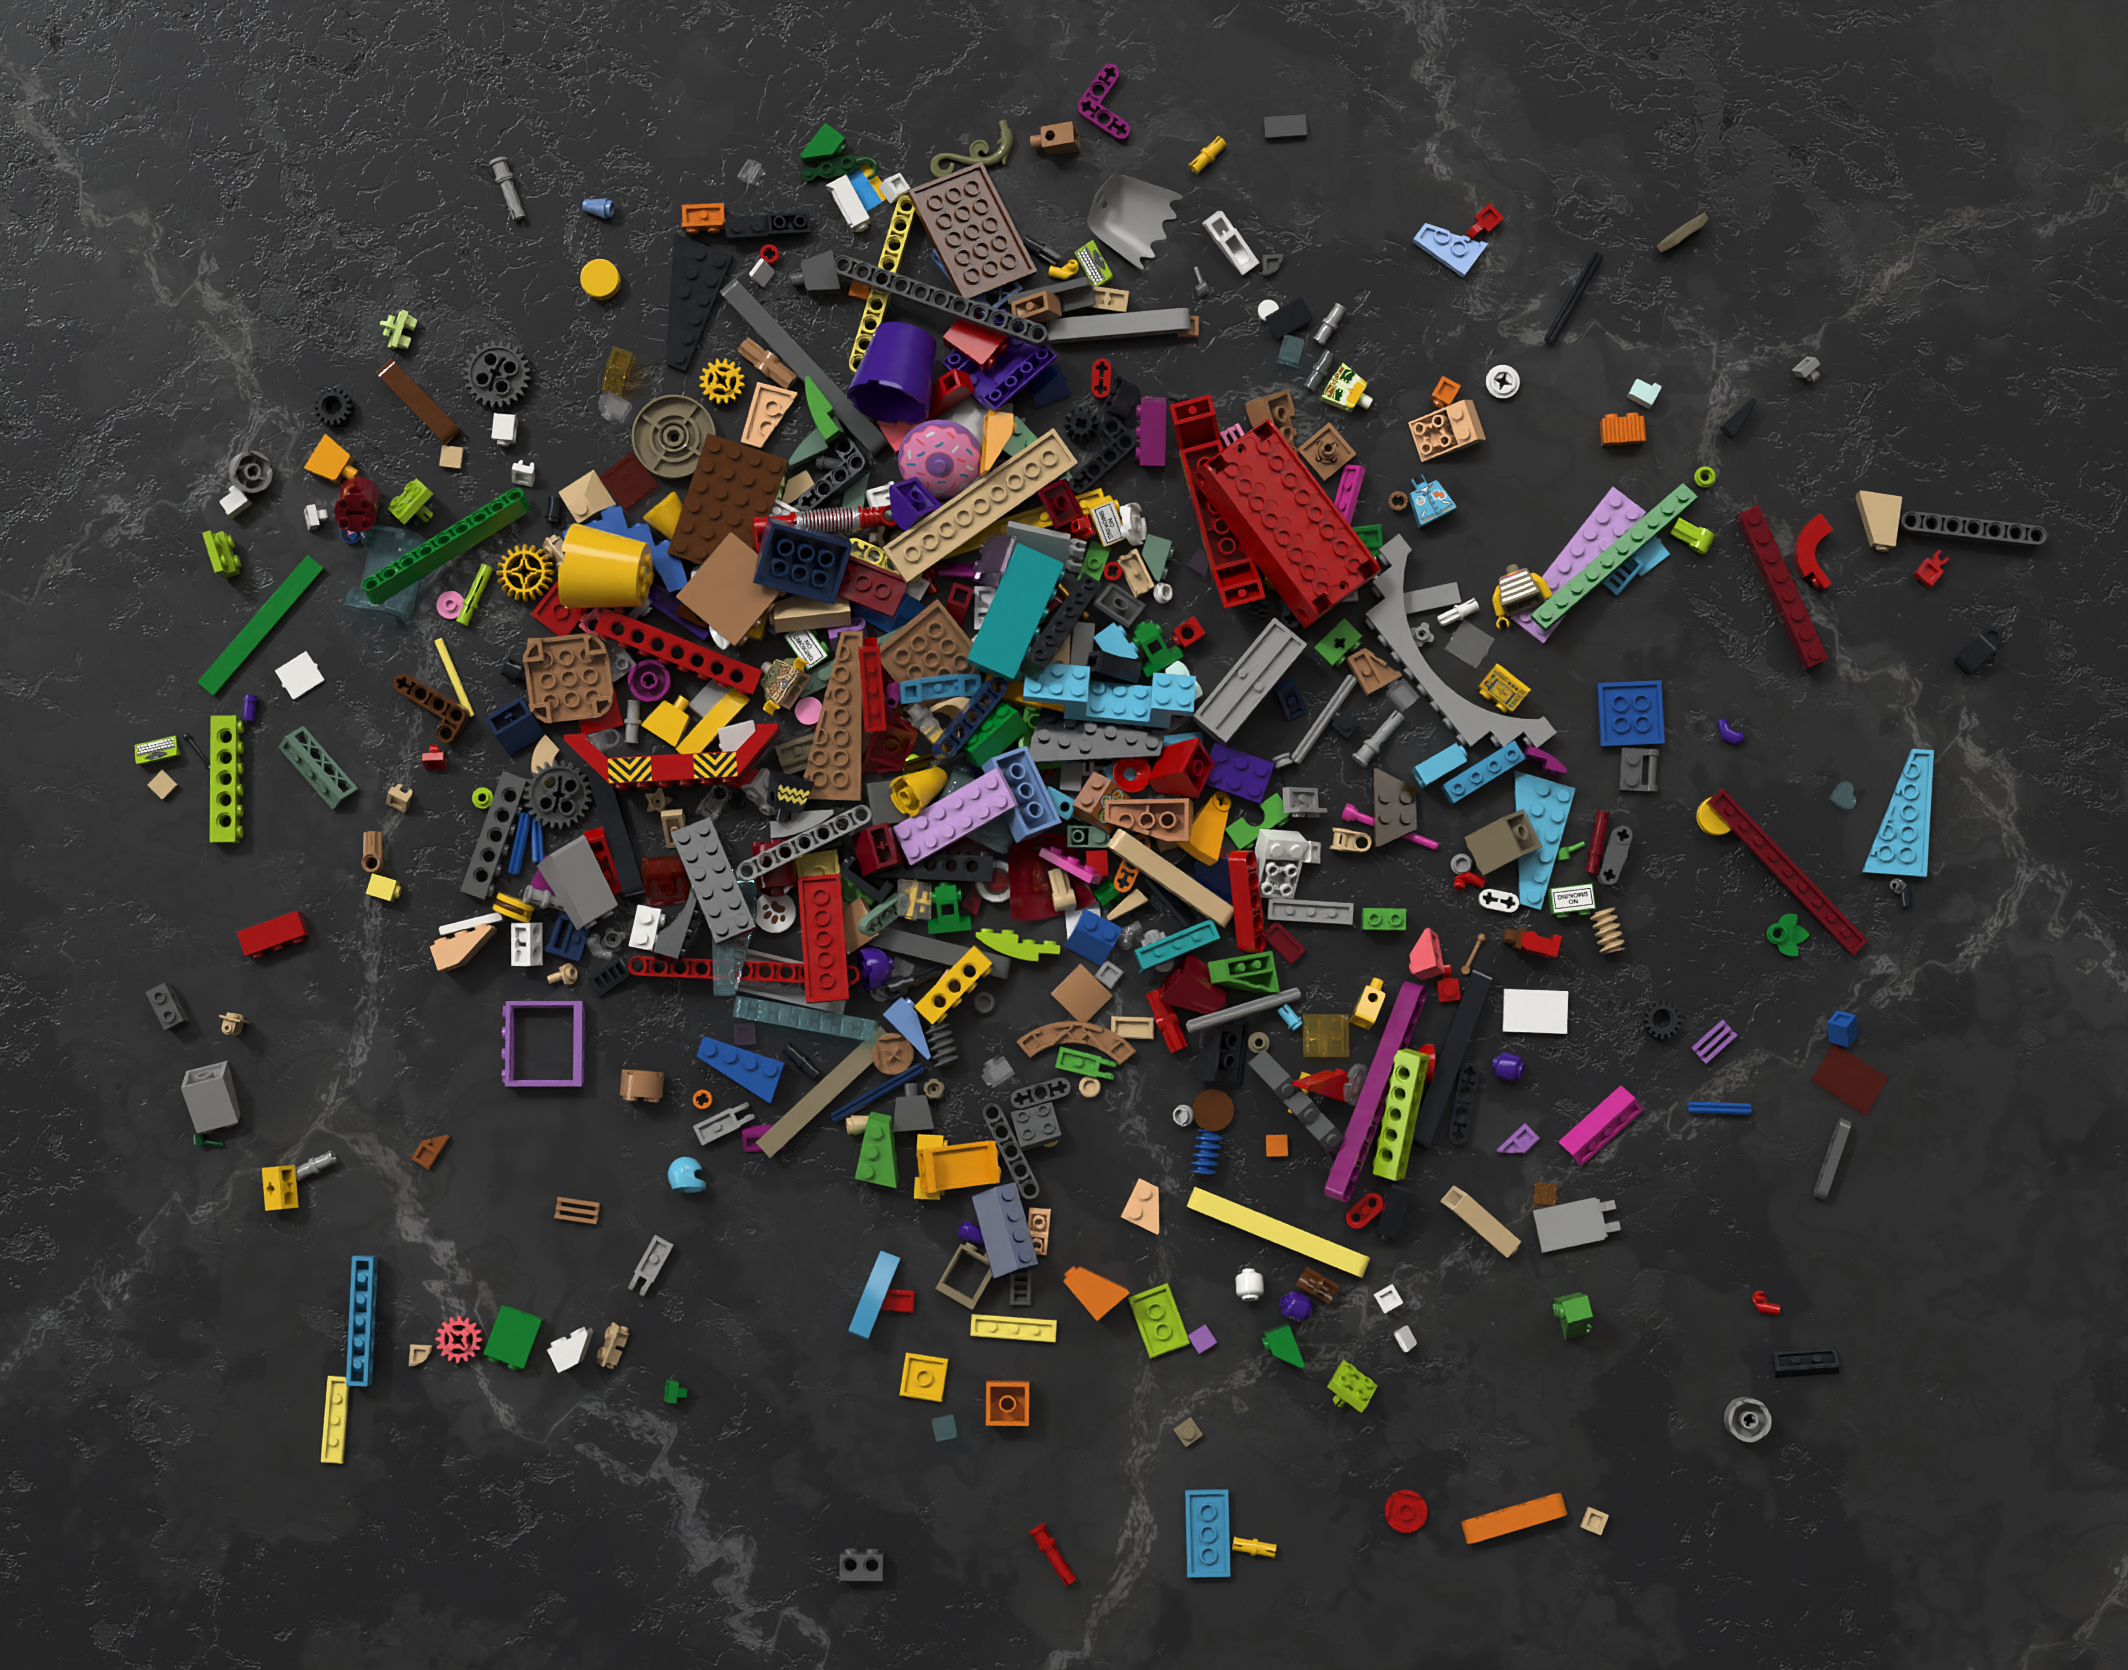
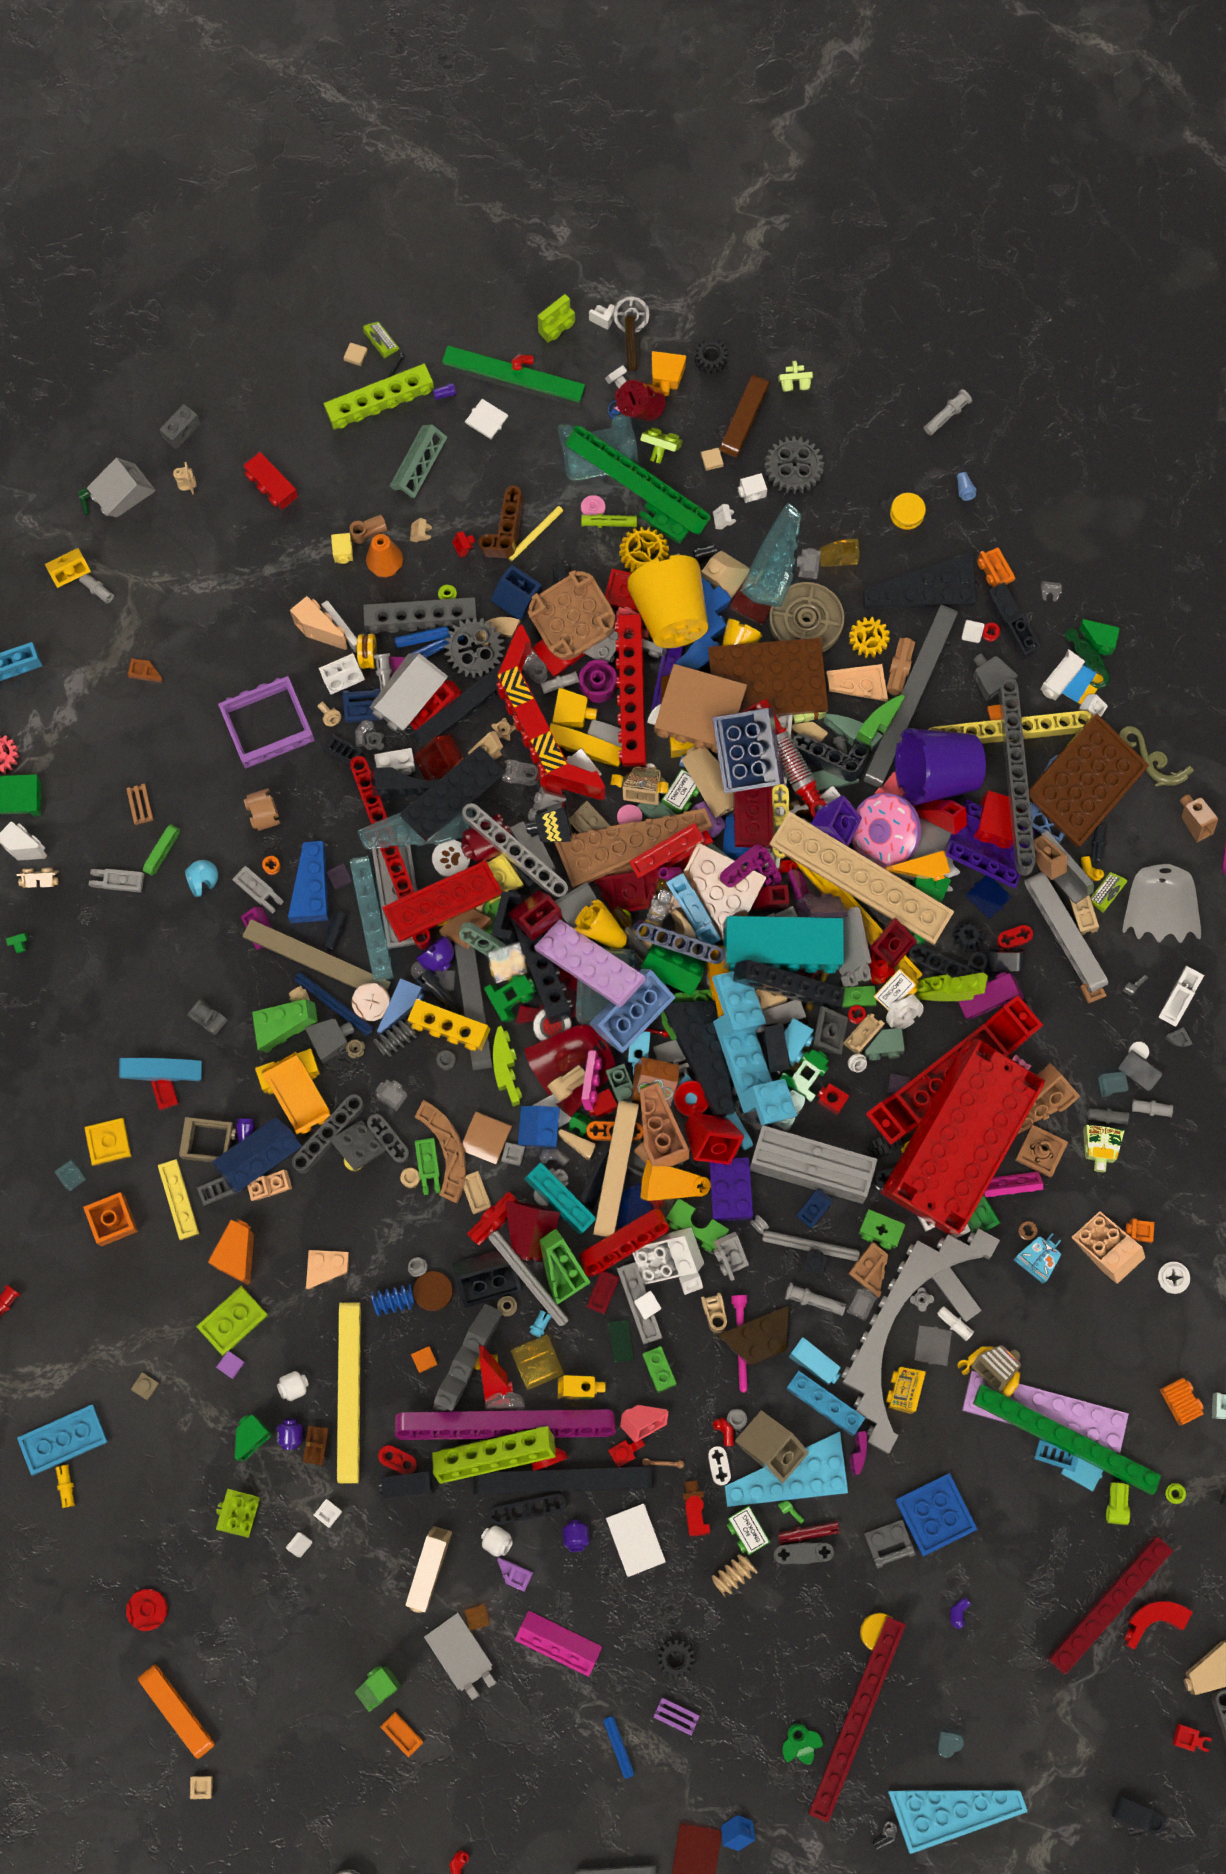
camera: 65 degrees right, 10 degrees down
(249, 611) = (521, 359): none -> red arm
(283, 486) = (631, 343): none -> dark brown axle
(413, 848) = (383, 556): none -> orange cone
(503, 538) = (664, 523): none -> green hinge
(605, 450) = (772, 567): none -> clear light blue wedge
(638, 1206) = (161, 850): none -> bright green beam
(837, 1227) = (207, 1017): none -> dark grey piece
(923, 629) = (753, 863): none -> magenta beam
(1130, 465) = (951, 989): none -> lime slope
(1317, 904) = (647, 1305): none -> white slope
(1339, 945) = (620, 1341): none -> clear green slope
(1481, 1145) = (496, 1541): none -> white head
(1623, 1309) = (402, 1734): none -> orange tile

